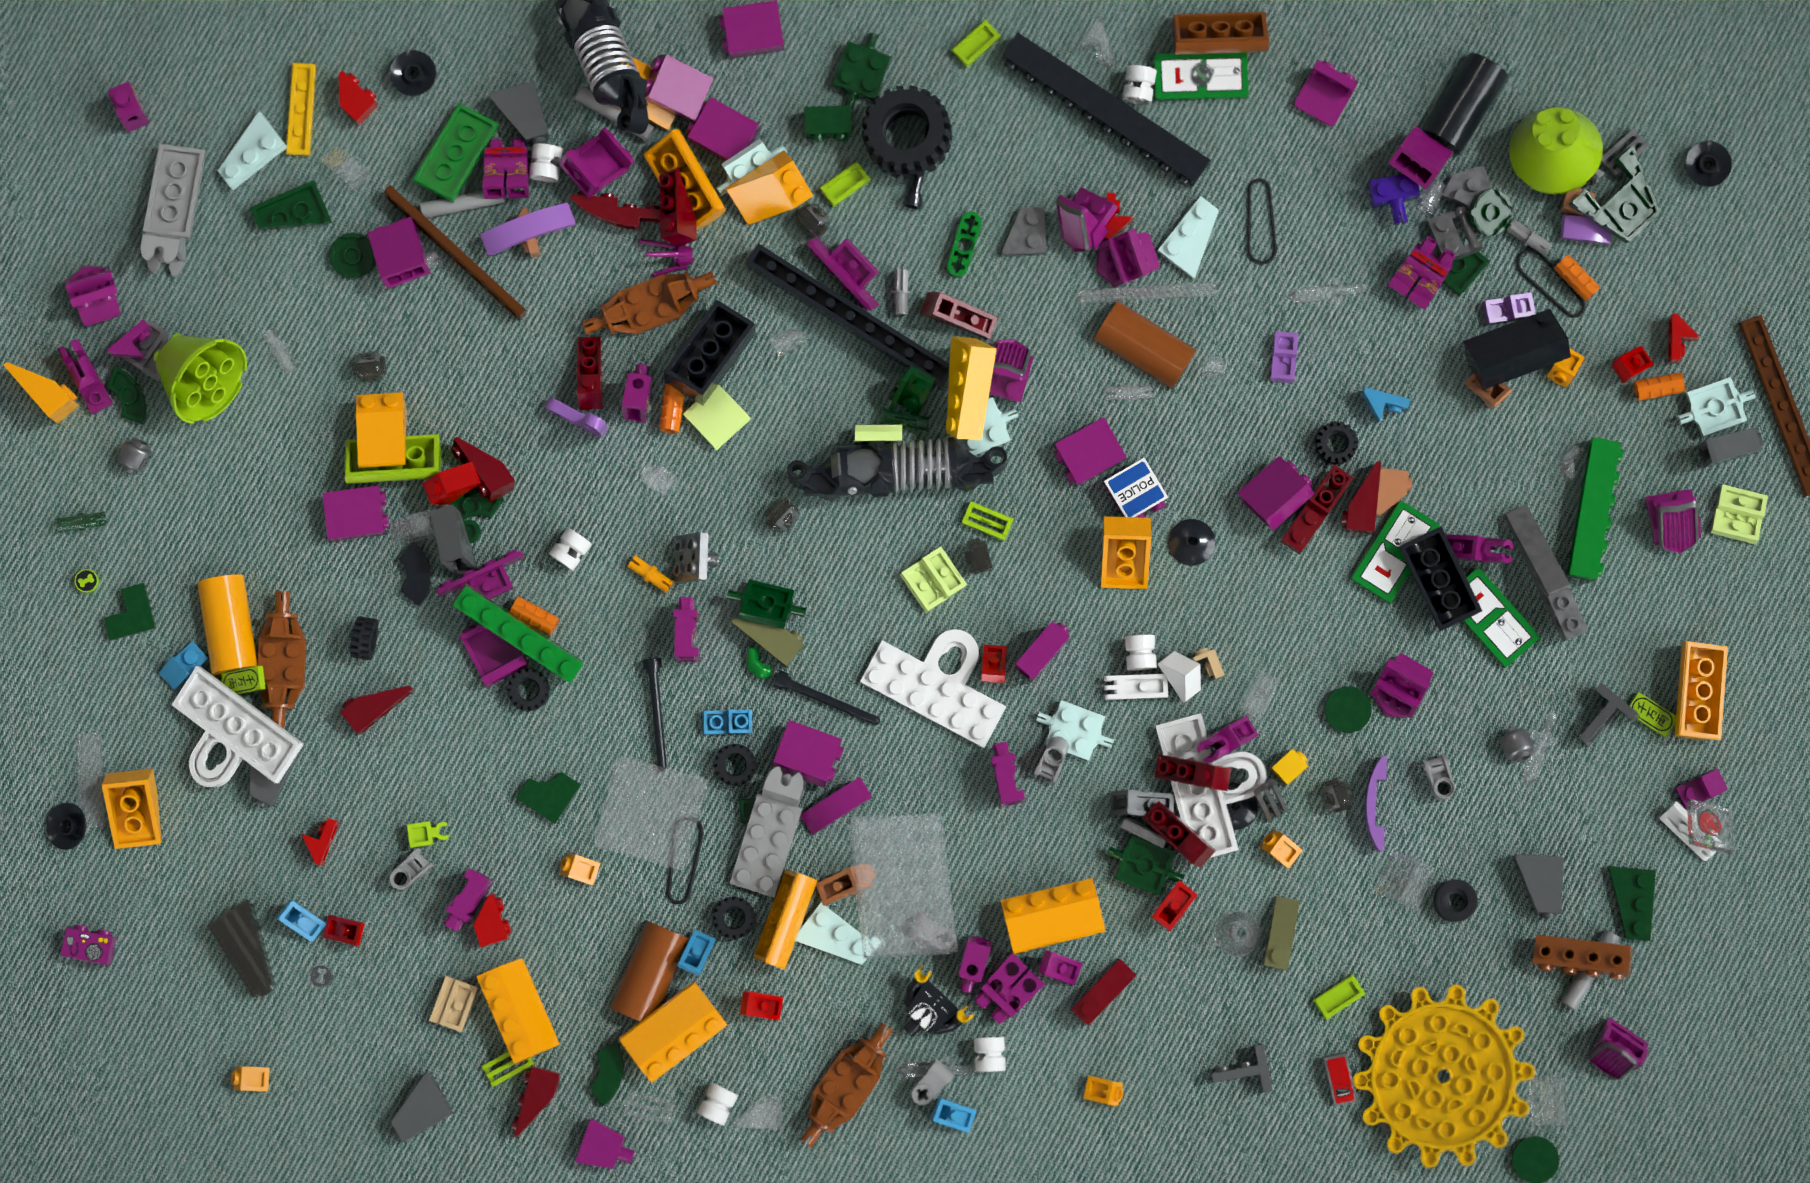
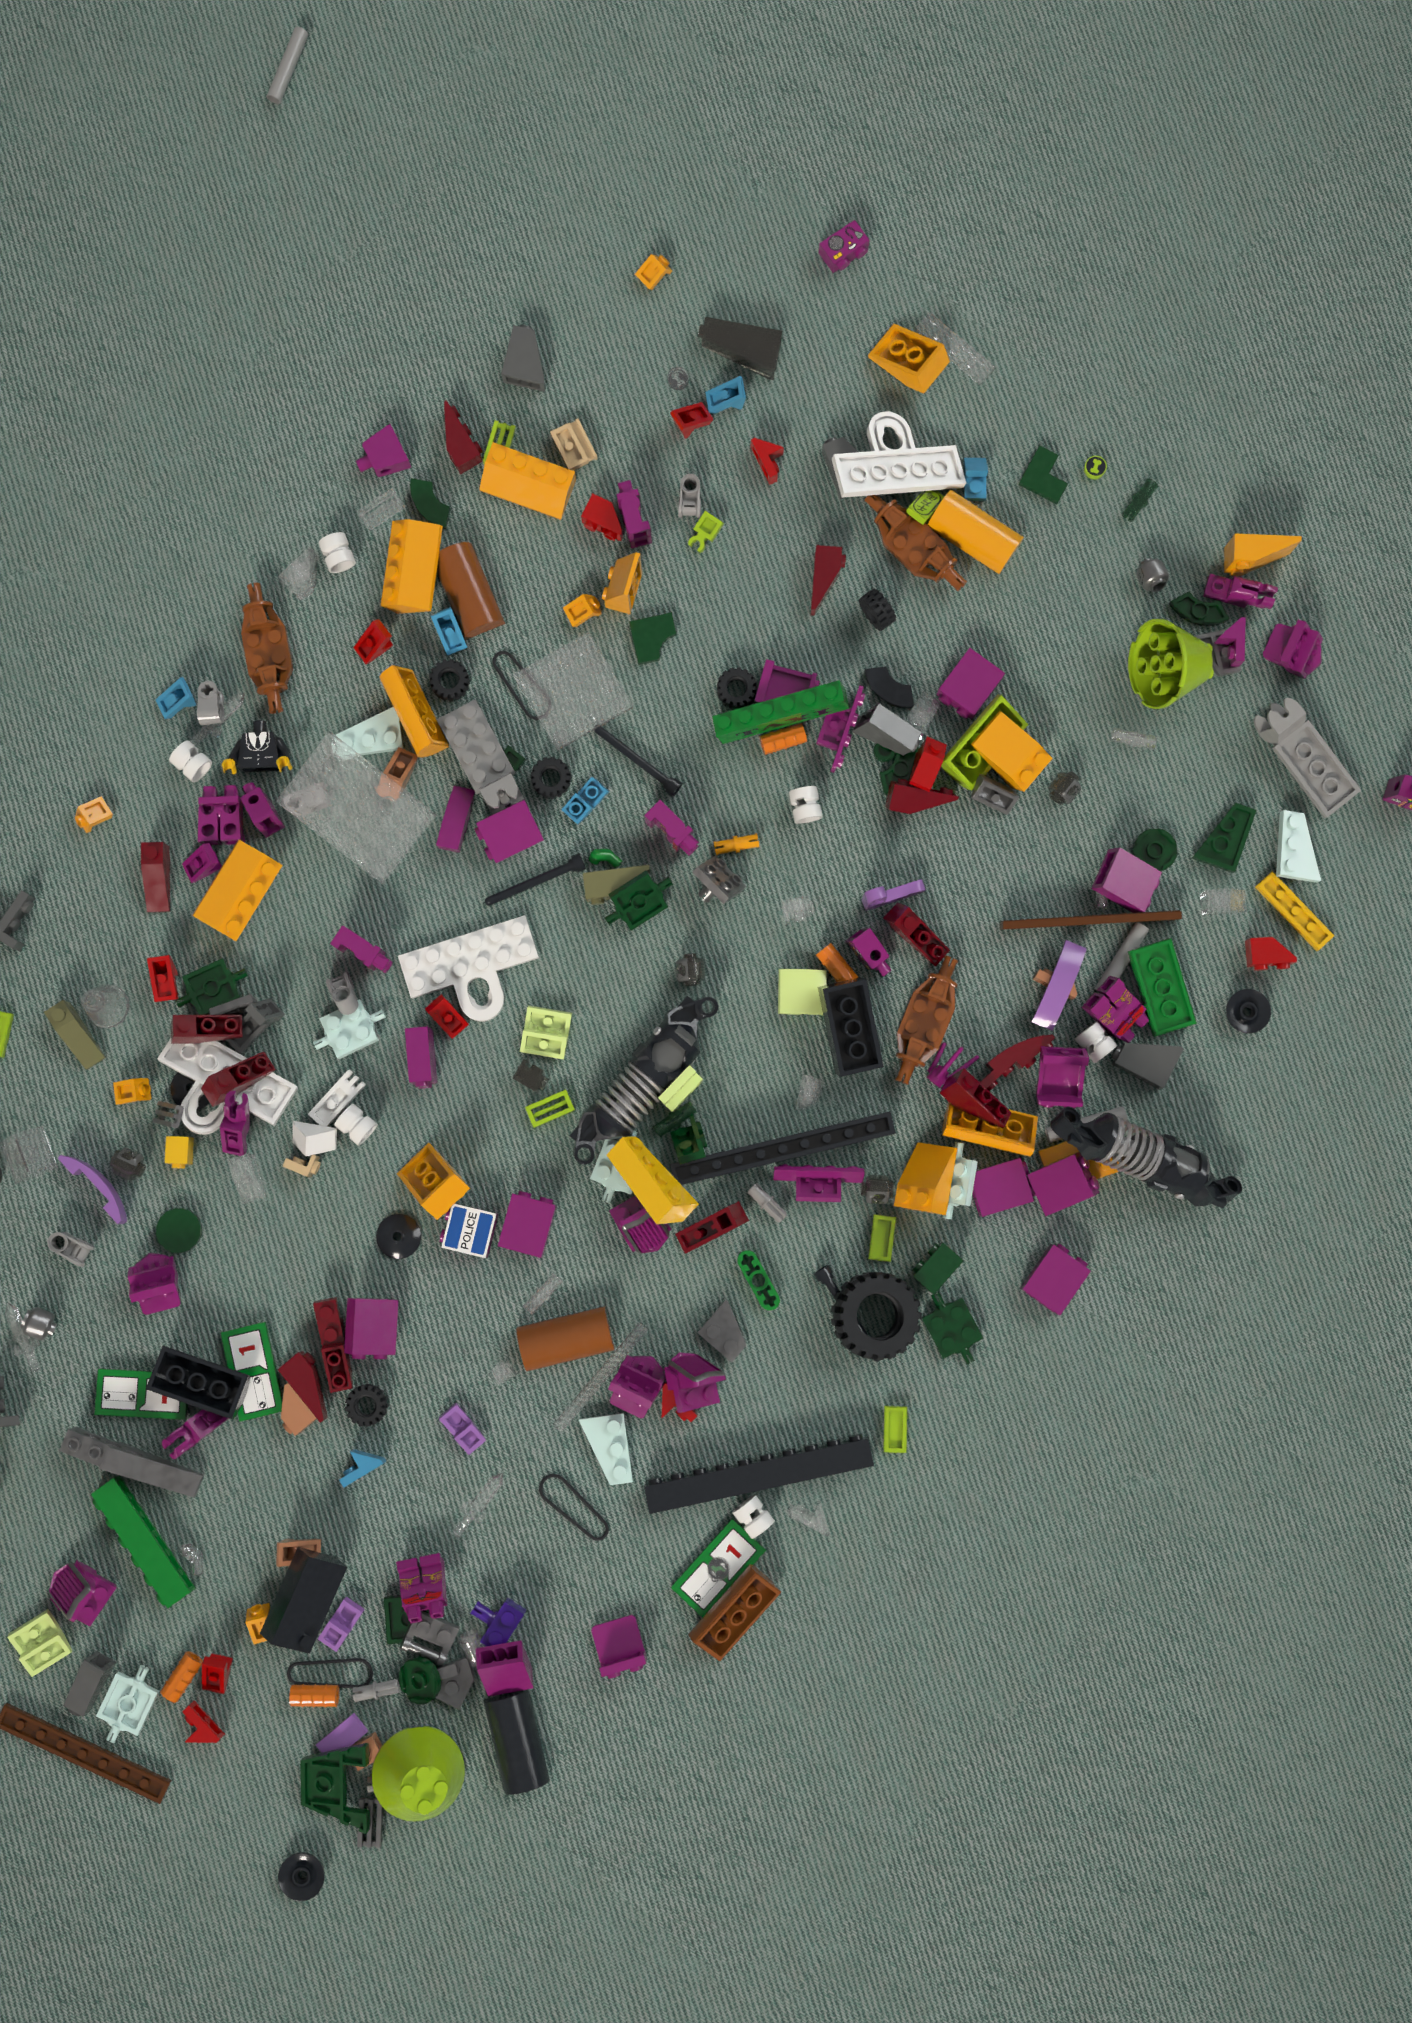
camera: 135 degrees right, 0 degrees up
(66, 826) = (938, 303): black dish -> none
(425, 414) = (994, 794): none -> flat silver slope
(530, 853) = (623, 583): none -> light orange slope

